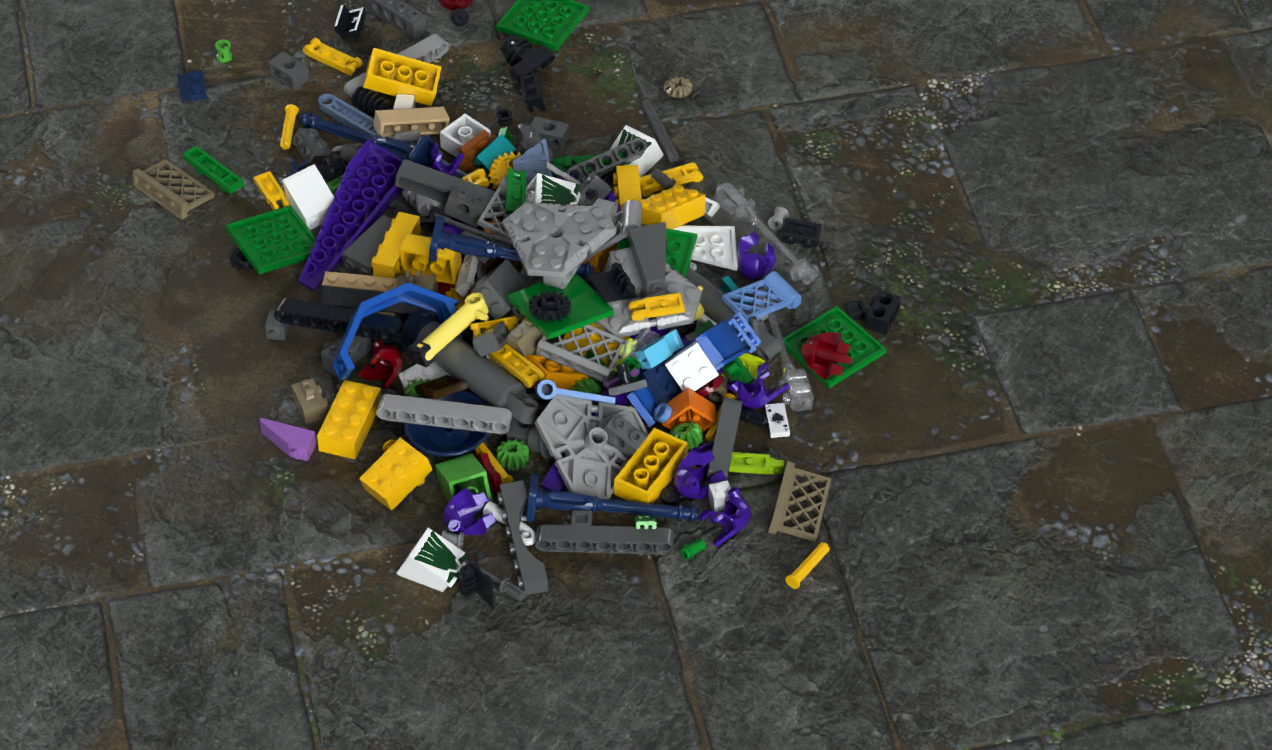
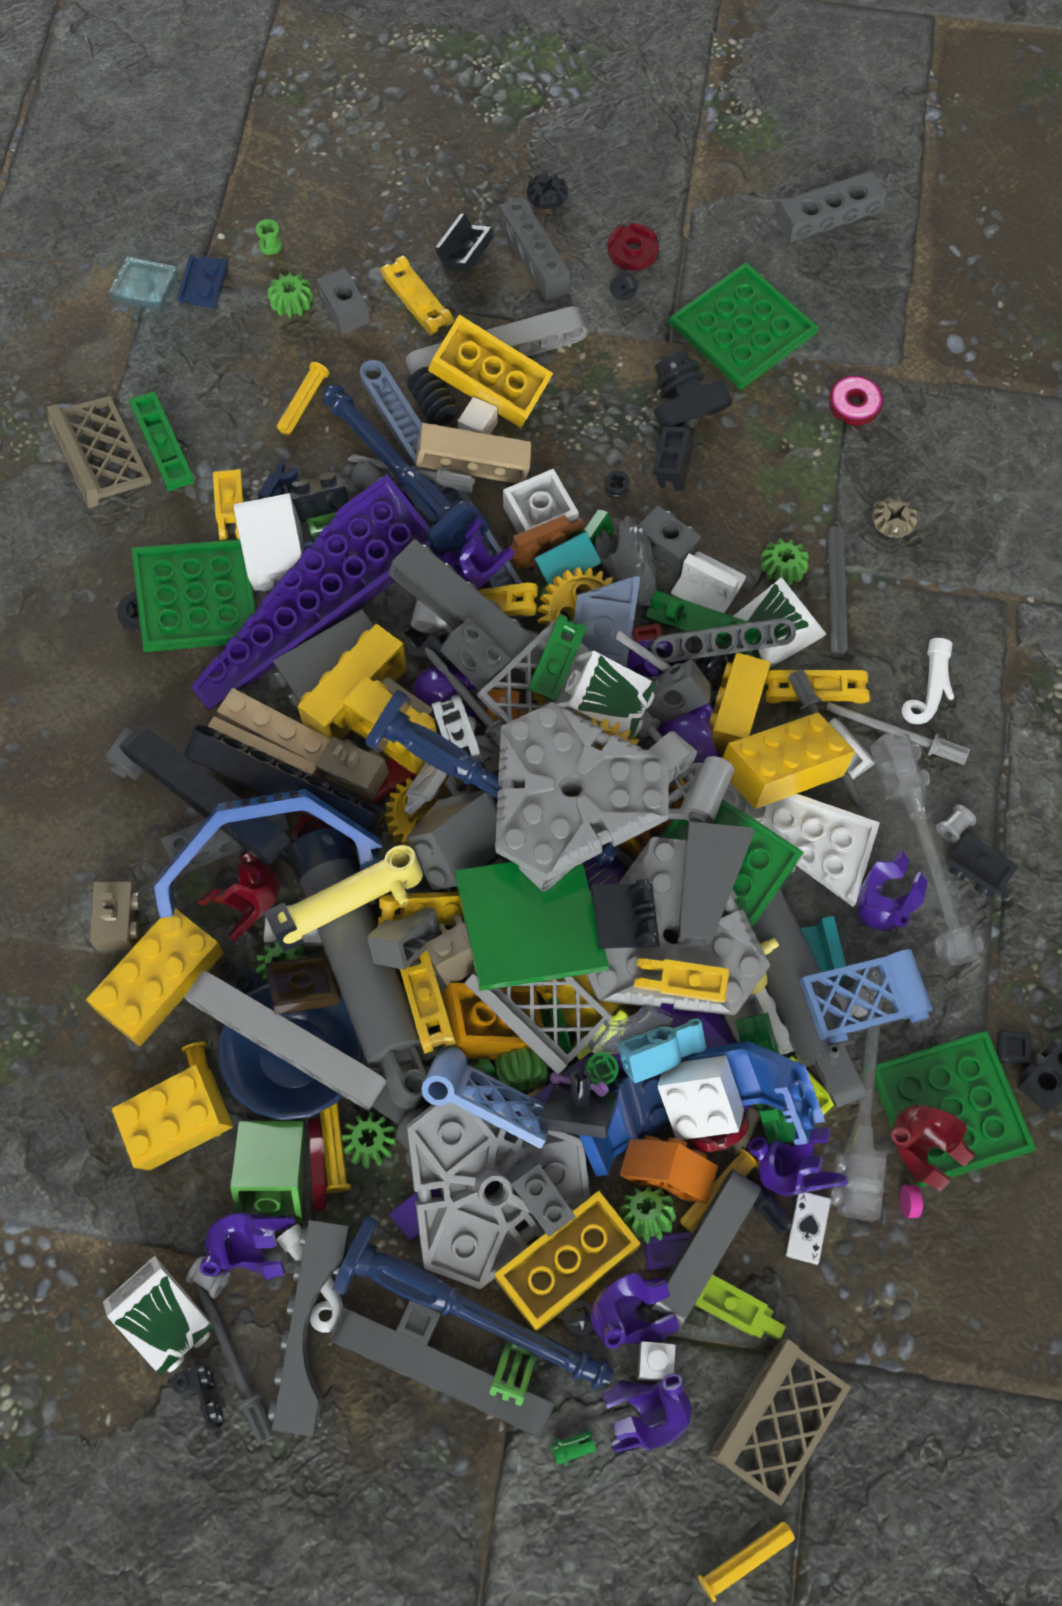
camera: 20 degrees right, 20 degrees up
(155, 97) = (143, 283): none -> clear light blue plate
(253, 76) = (290, 295): none -> bright green gear
(292, 440) = (56, 983): medium lavender slope -> none
(310, 144) = (320, 440): dark grey bracket -> none
(549, 306) = (503, 933): black gear -> none
(582, 144) = (708, 582): none -> white bracket
(618, 122) = (784, 561): none -> bright green gear
(636, 32) = (860, 388): none -> tile
(662, 412) = (627, 1157): medium blue tile -> none
(733, 143) = (938, 680): none -> white plant
(752, 186) = (937, 746): none -> light grey piece
(828, 390) = (911, 1201): none -> dark pink tile

